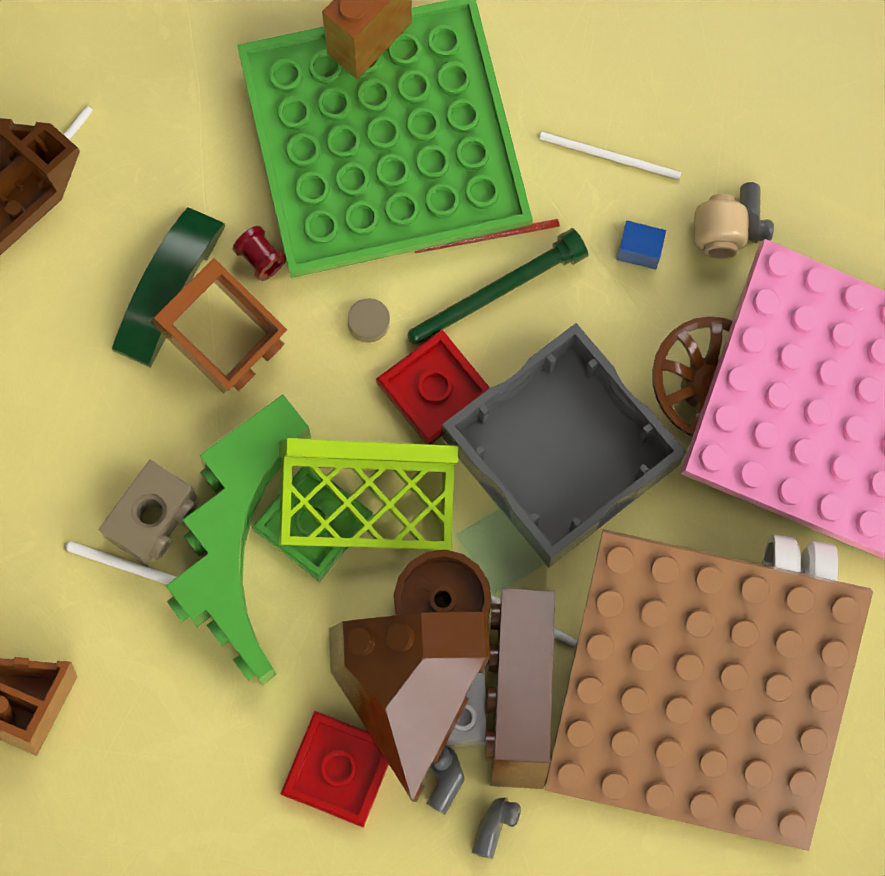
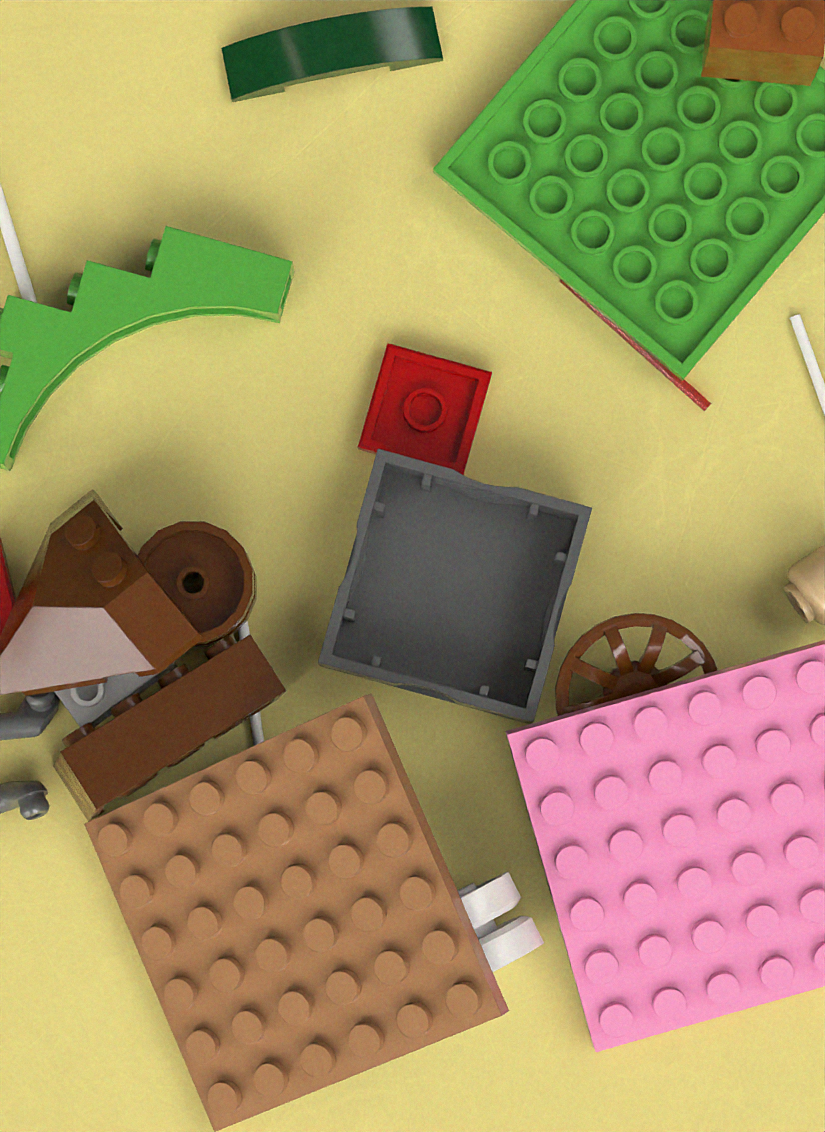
camera: 55 degrees right, 10 degrees up
(150, 489) = (46, 205): dark tan brick -> none
(259, 253) = (433, 120): dark red bush -> none
(265, 348) = (322, 85): dark orange window -> none
(312, 559) = (190, 390): bright green tile -> none
(367, 456) = (291, 399): lime fence -> none
(368, 320) = (447, 288): dark tan tile -> none
(500, 550) = (298, 602): clear light blue piece -> none
(567, 249) = (677, 437): dark green piece -> none
(641, 245) = (747, 513): blue slope -> none

